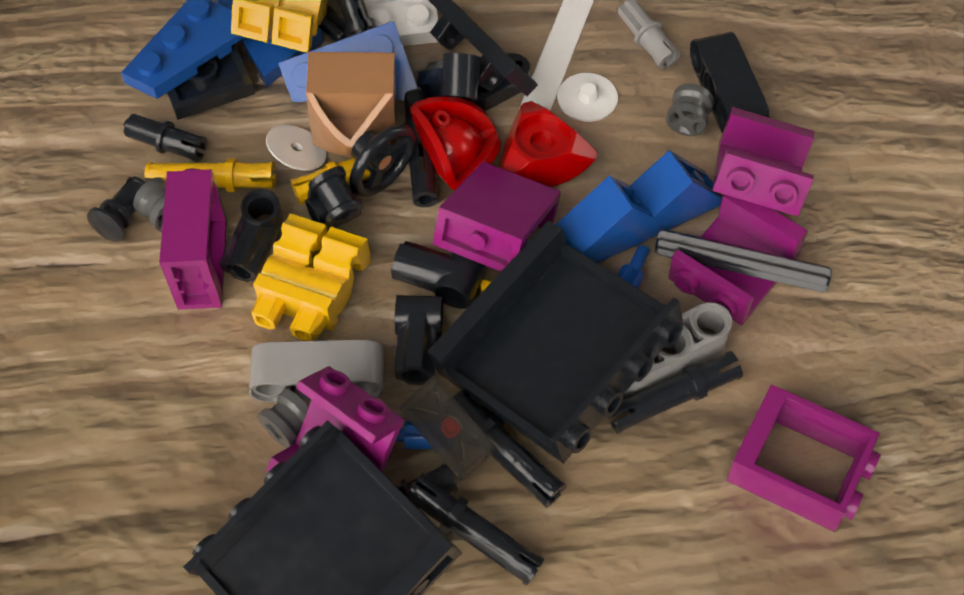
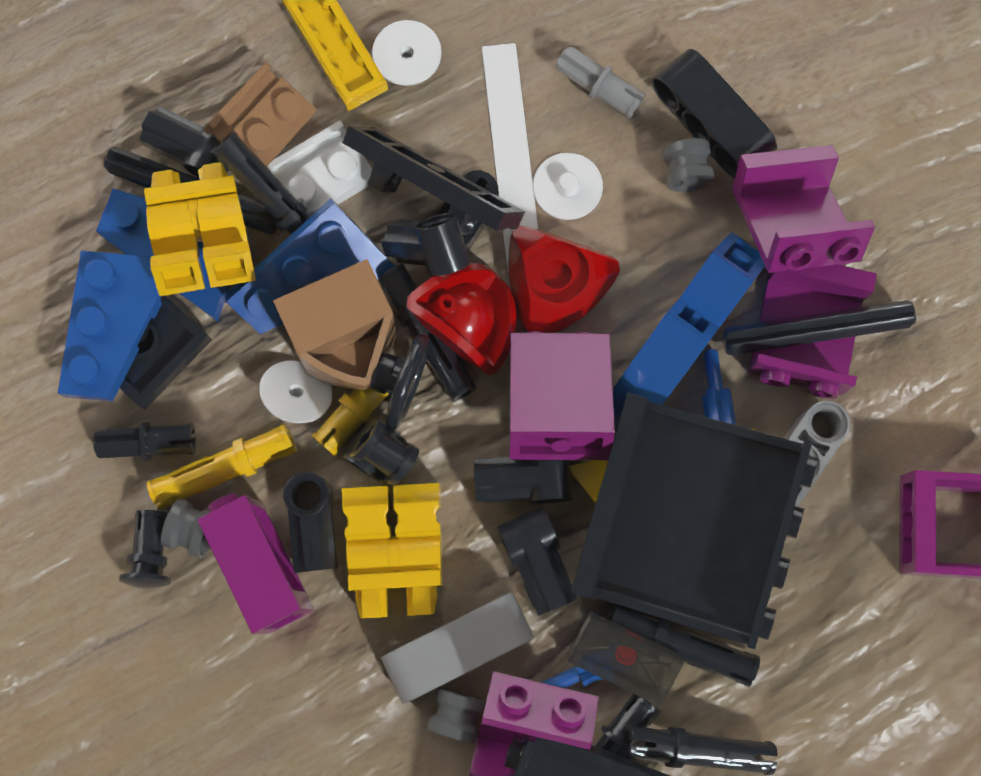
camera: 25 degrees left, 20 degrees up
(690, 384) = (827, 492): black pin -> none

